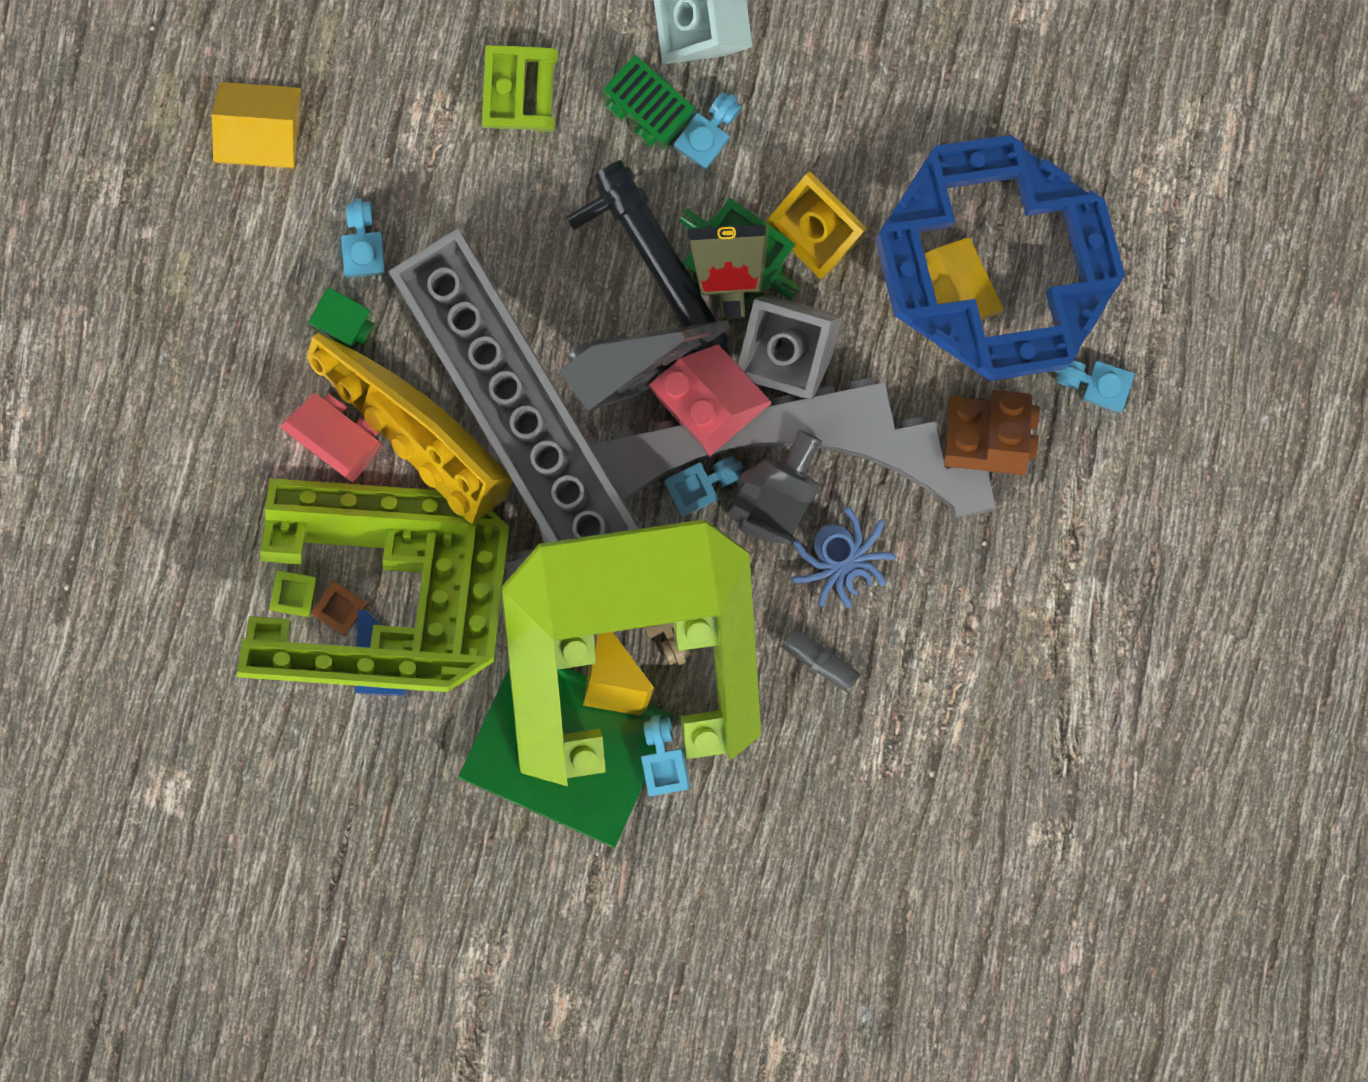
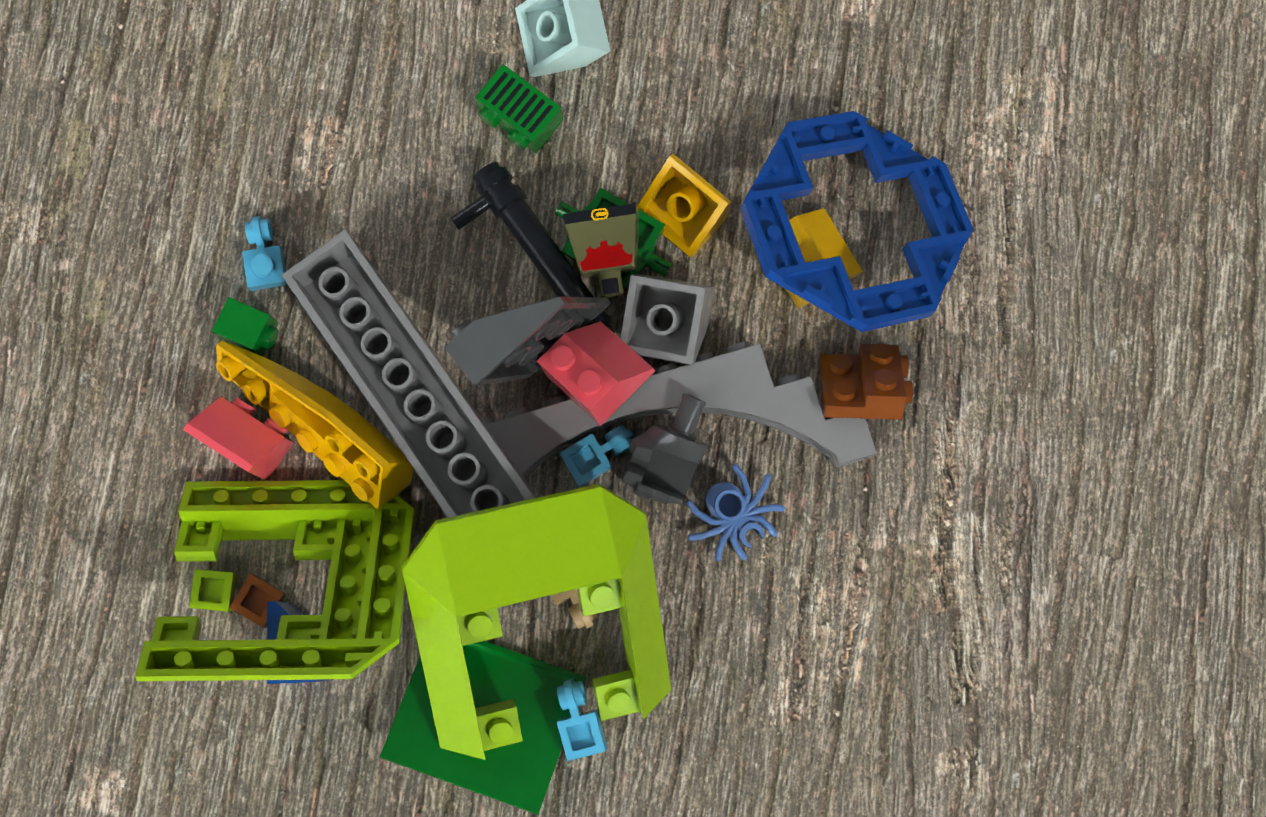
camera: 10 degrees left, 5 degrees down
(255, 125) = (158, 159): yellow slope -> none
(506, 88) = (388, 109): lime plate -> none
(616, 679) = (525, 648): yellow slope -> none
(703, 139) = (572, 139): medium azure plate -> none
(821, 660) = (722, 612): dark grey pin -> none
(1105, 386) = (963, 333): medium azure plate -> none

